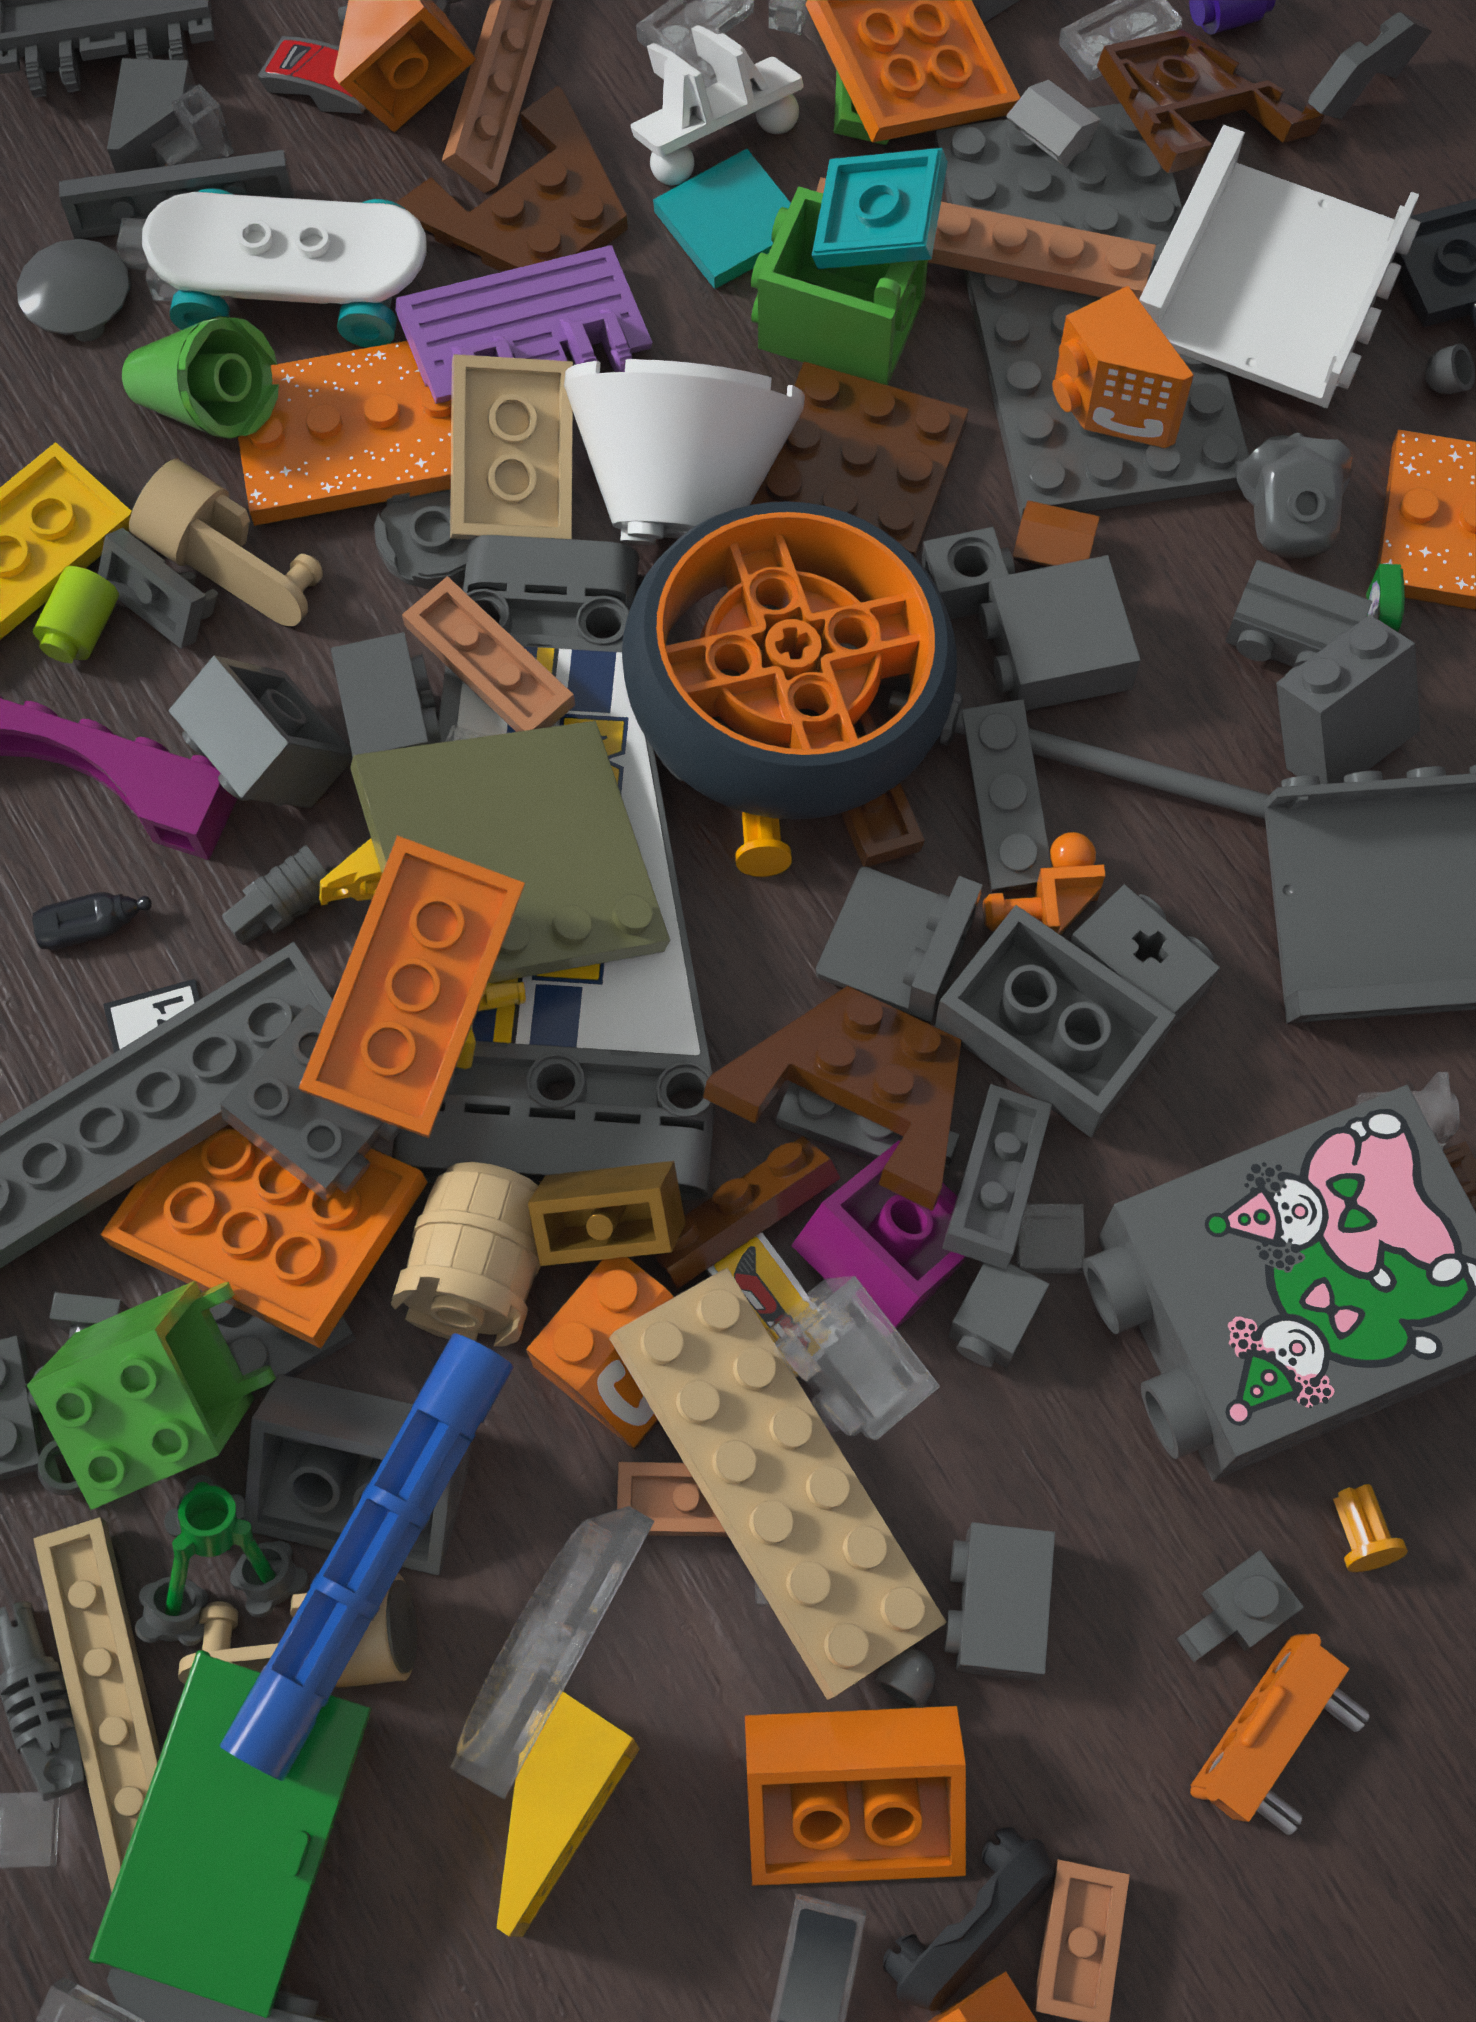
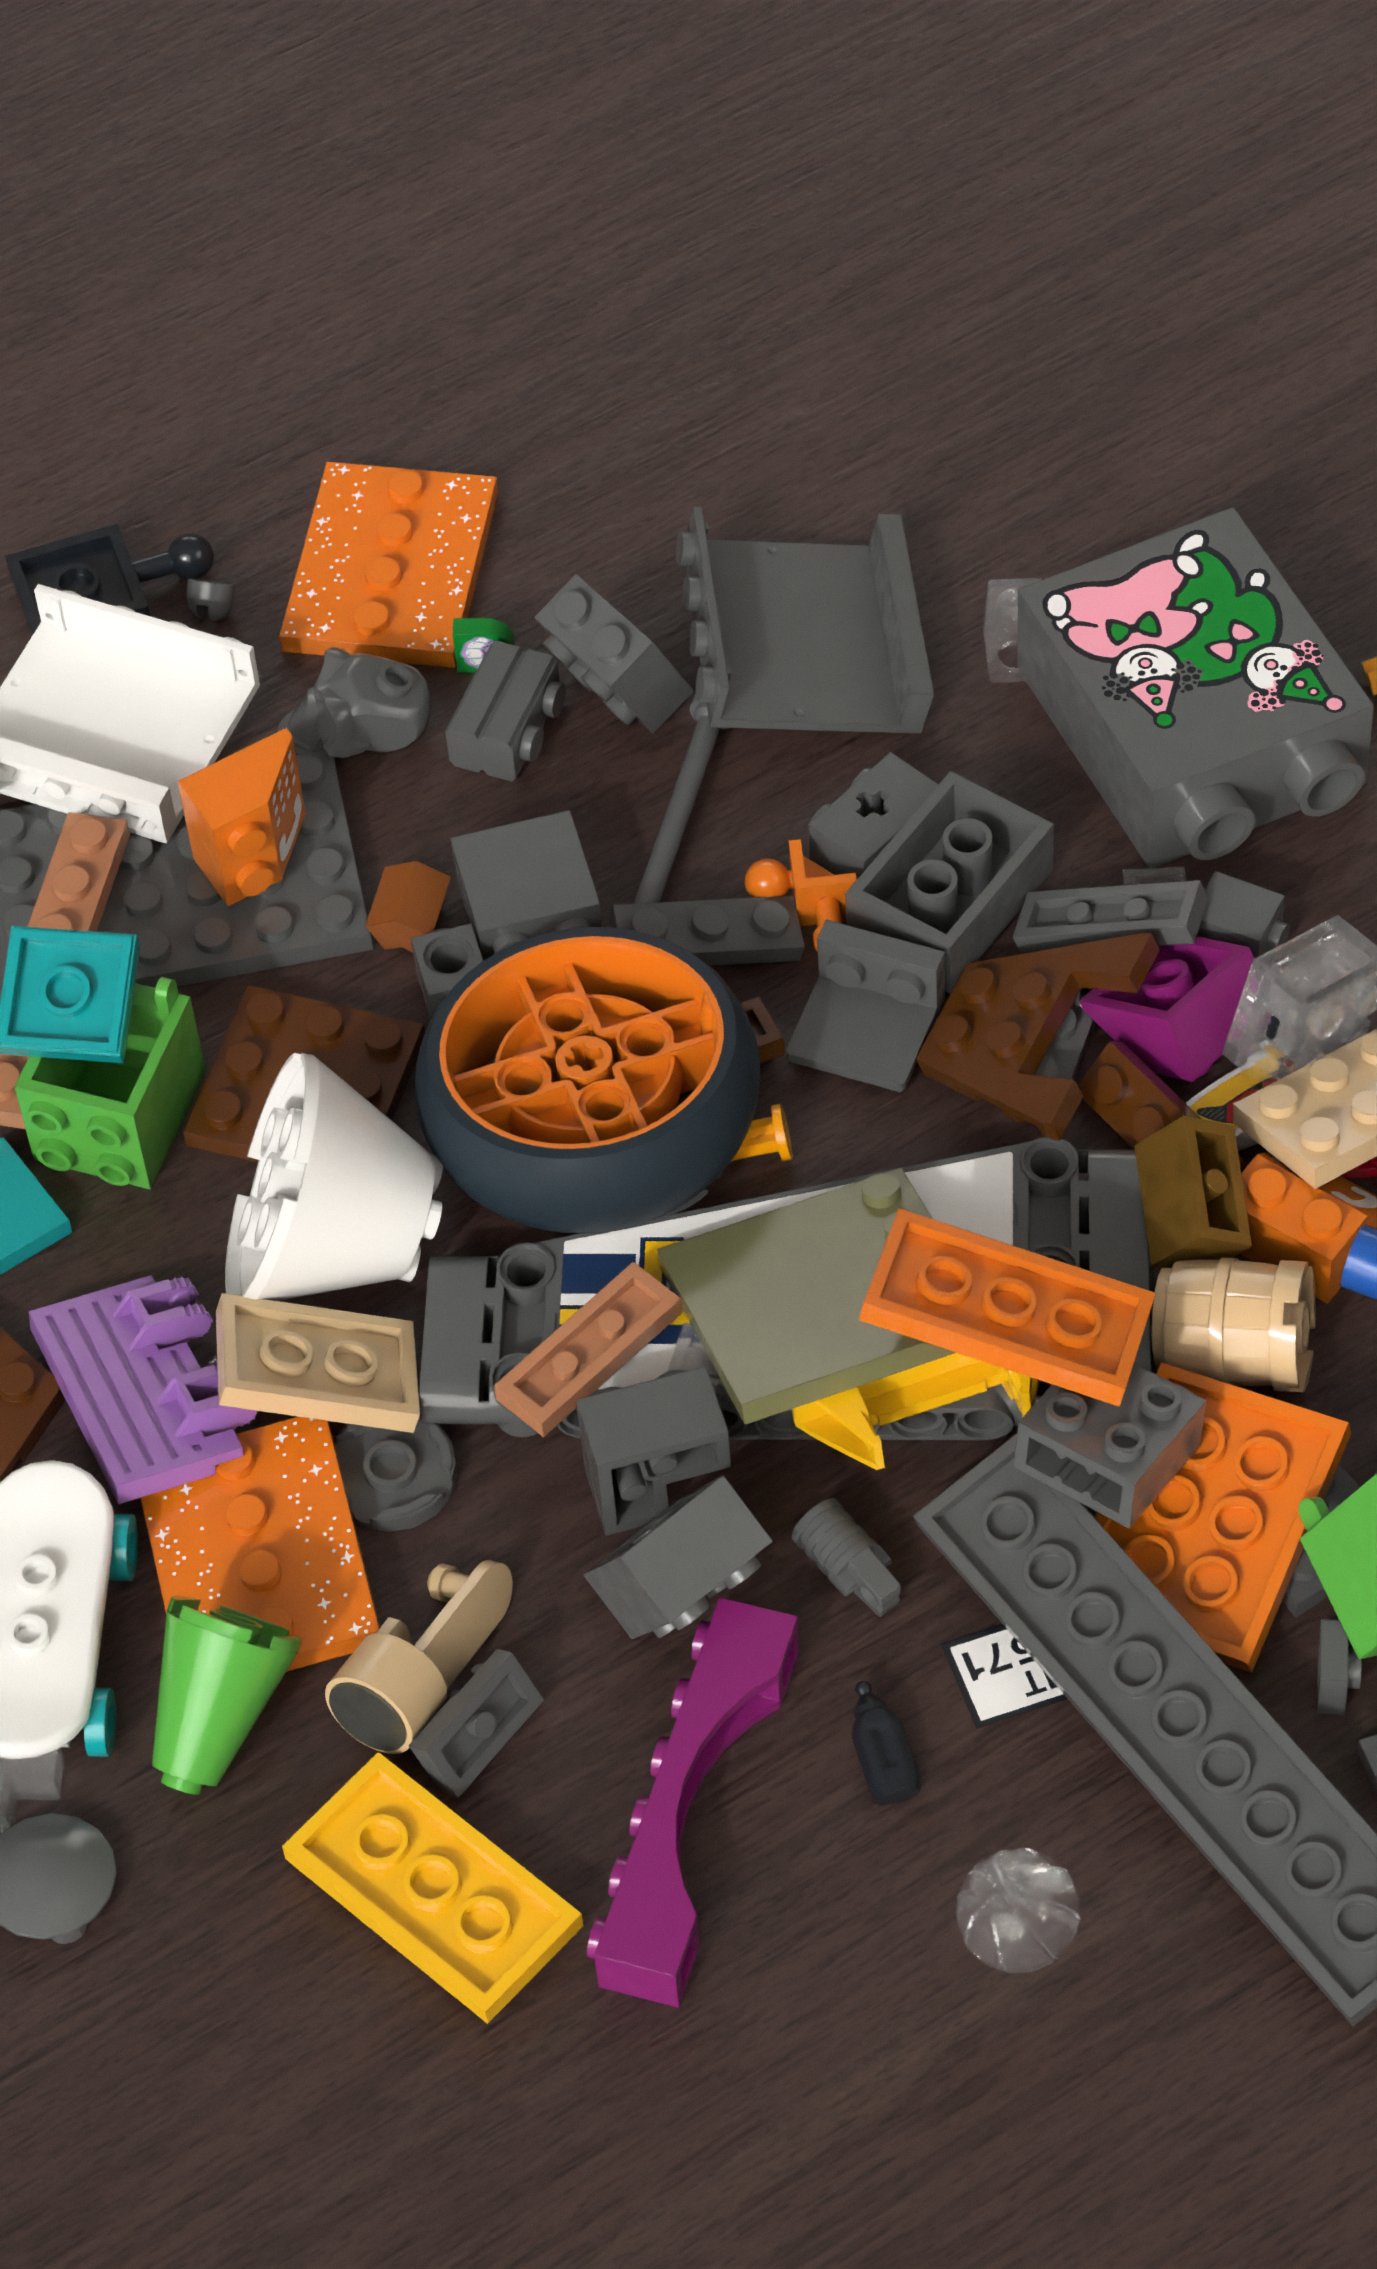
camera: 90 degrees left, 15 degrees down
(75, 614) = (512, 1798): lime brick -> none

